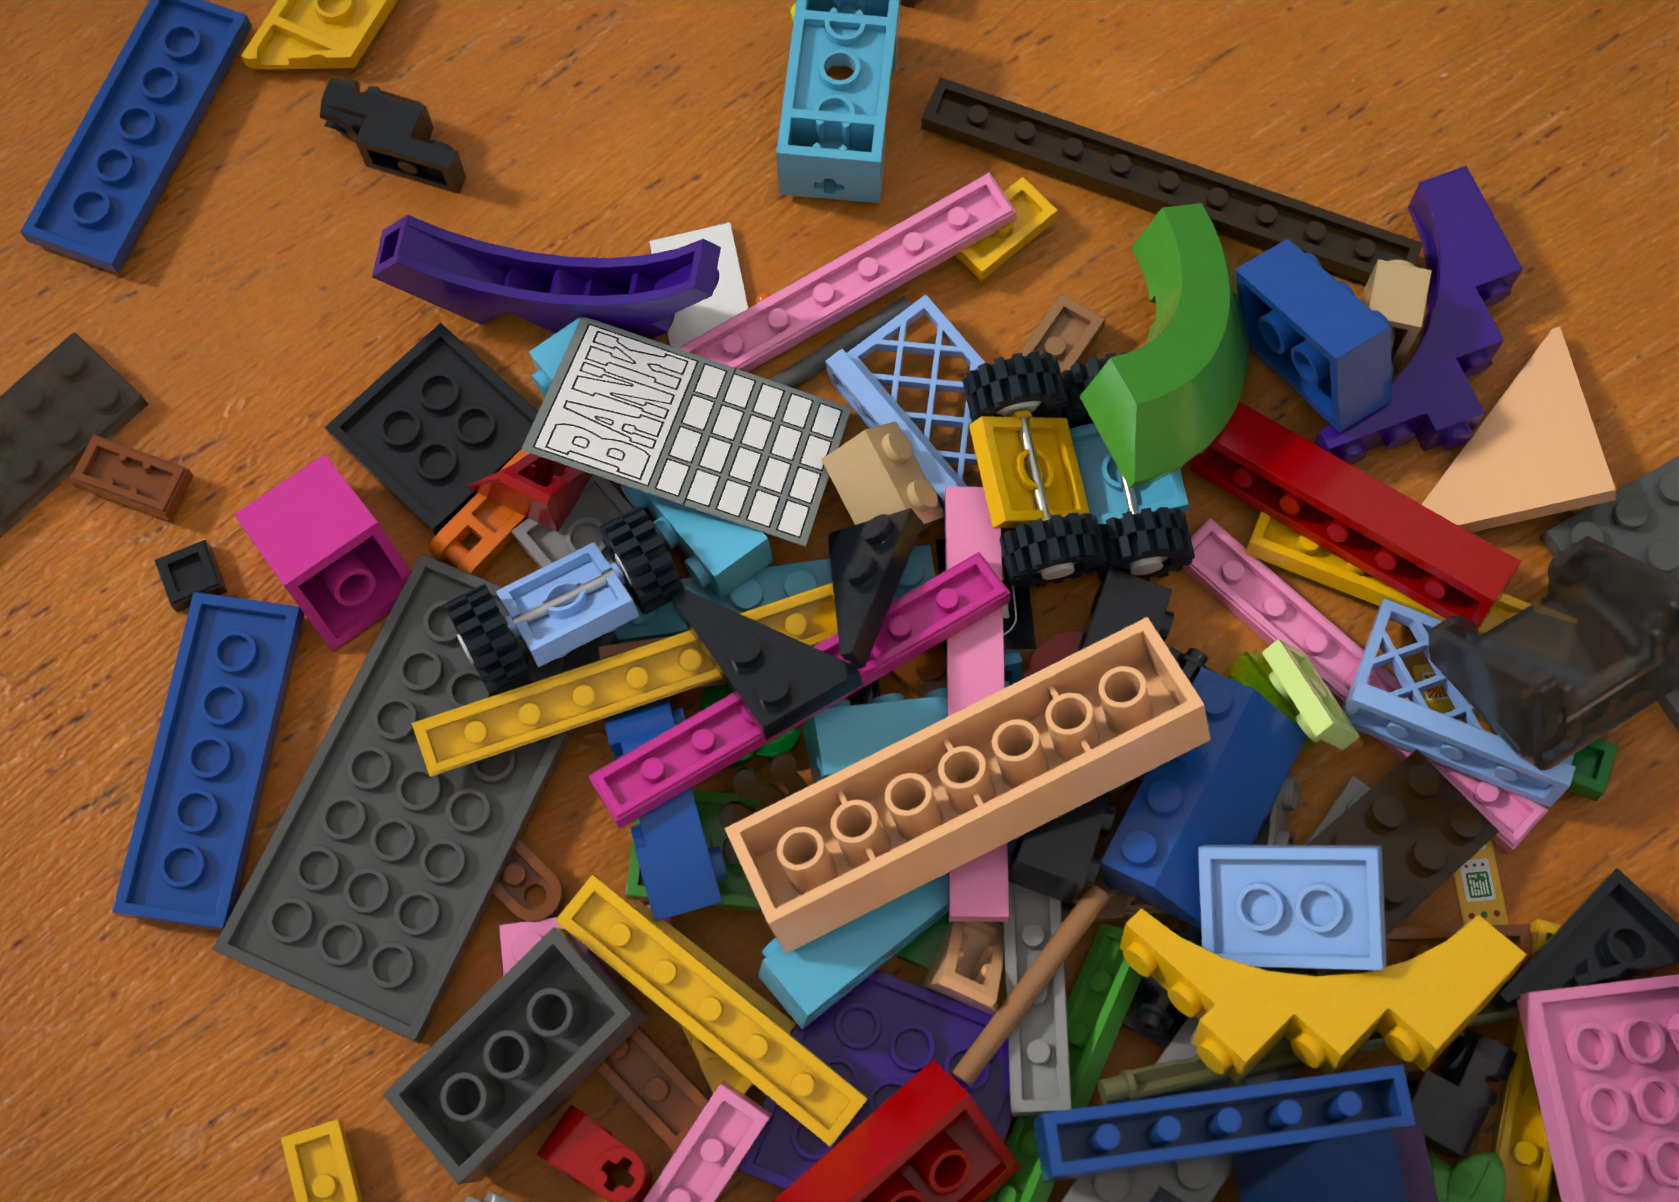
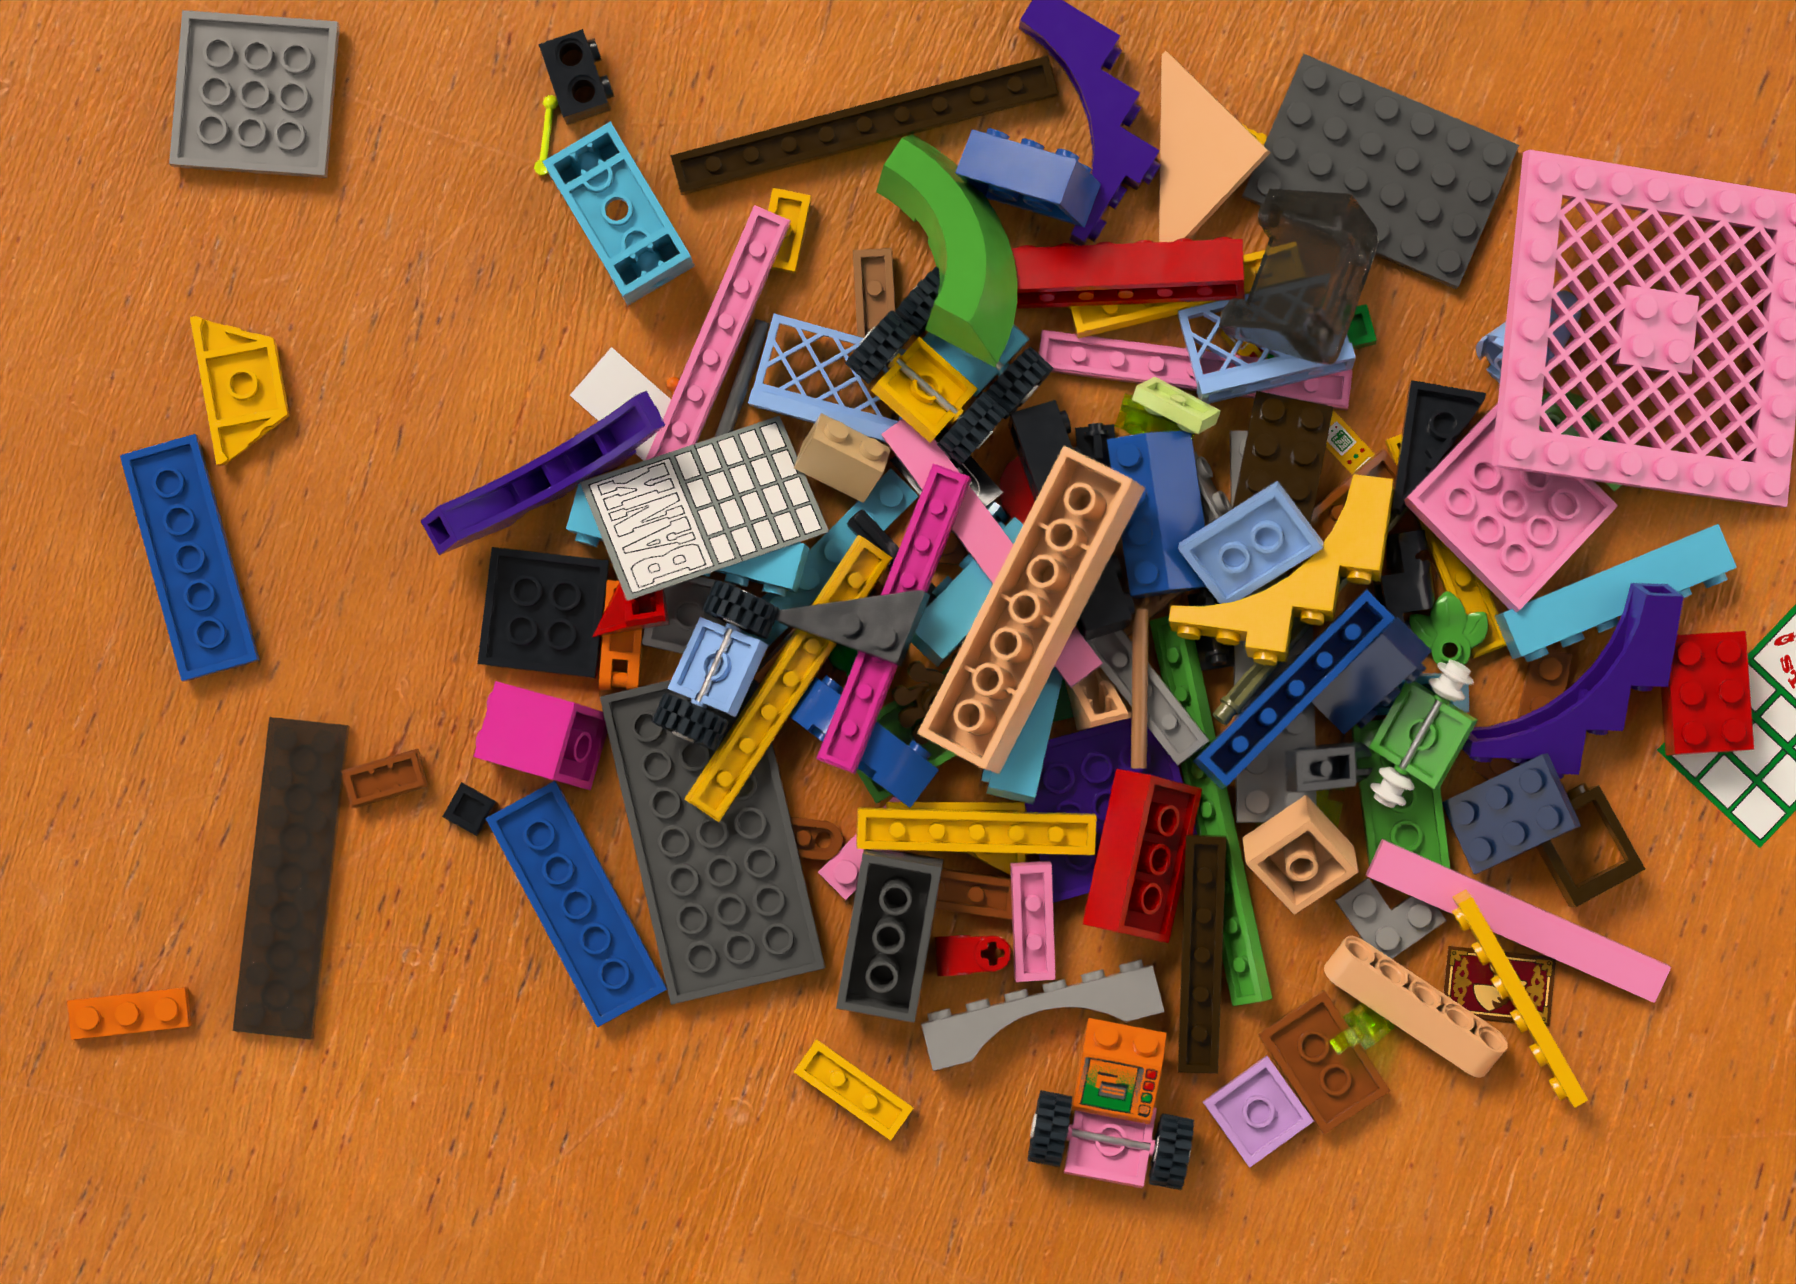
camera: 35 degrees left, 15 degrees up
(391, 133) = (355, 443): black plate -> none
(865, 575) = (878, 522): black wing -> none
(1400, 294) = (1061, 123): tan brick -> none

